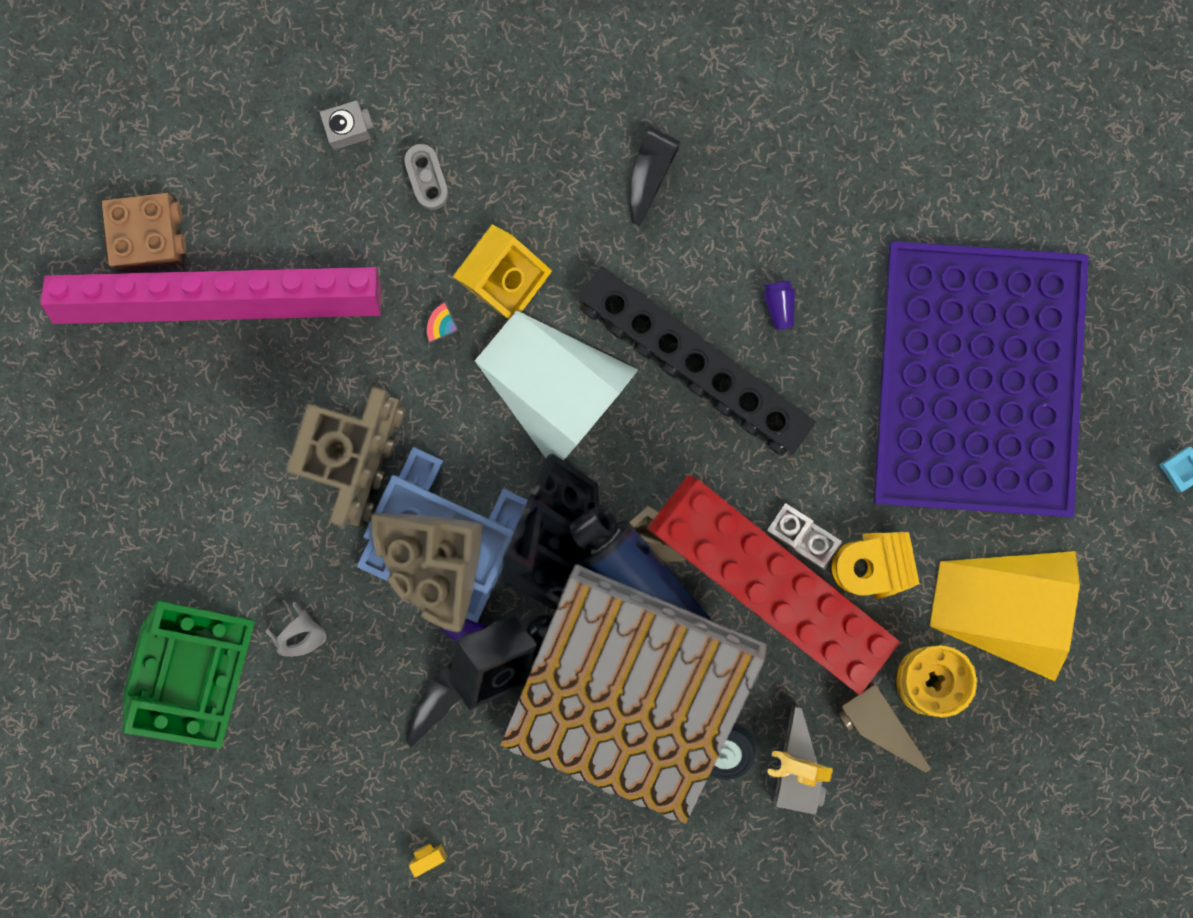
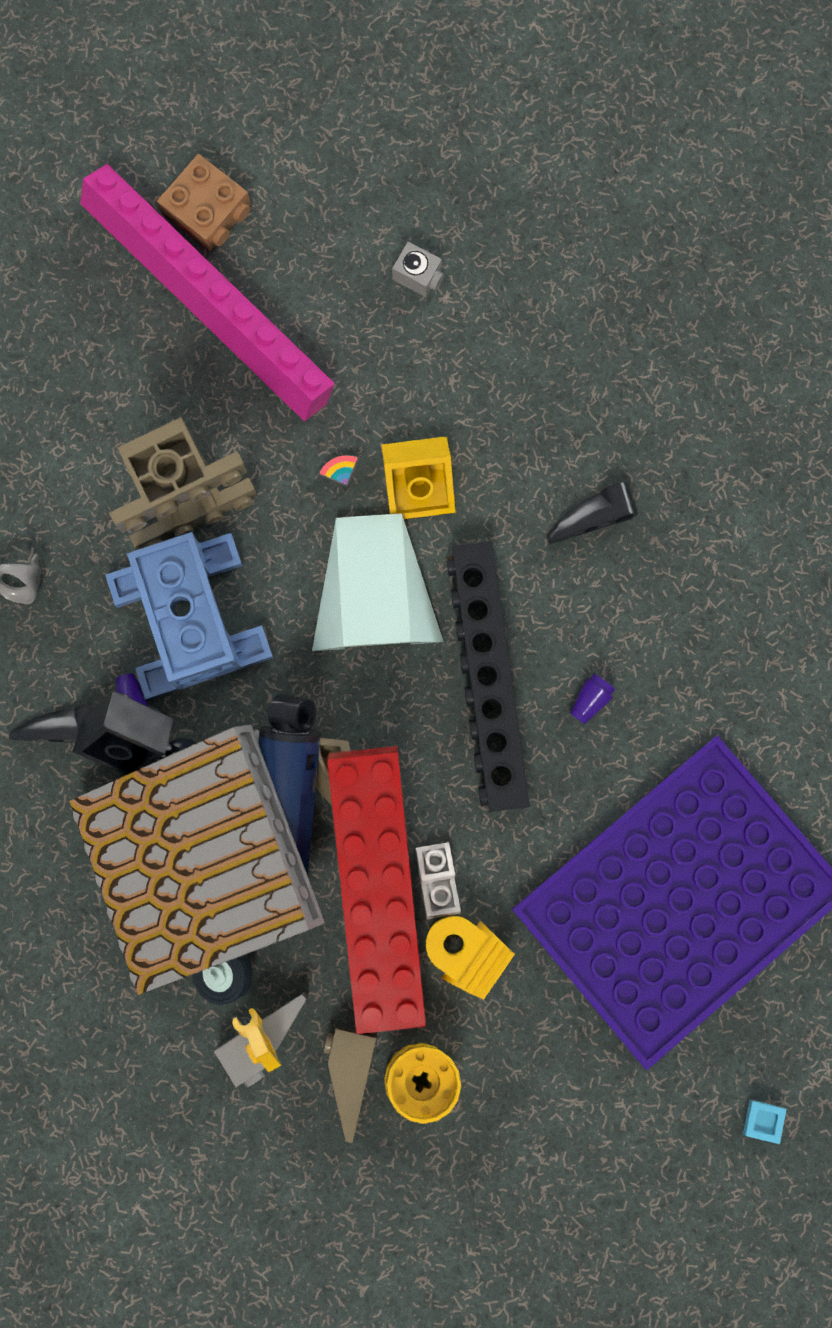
camera: 45 degrees right, 5 degrees down
(427, 177) = (434, 360): light grey plate -> none
(430, 562) = (152, 618): dark tan brick -> none
(542, 546) = (241, 685): black wedge -> none
(1011, 607) = (533, 1088): yellow wedge -> none

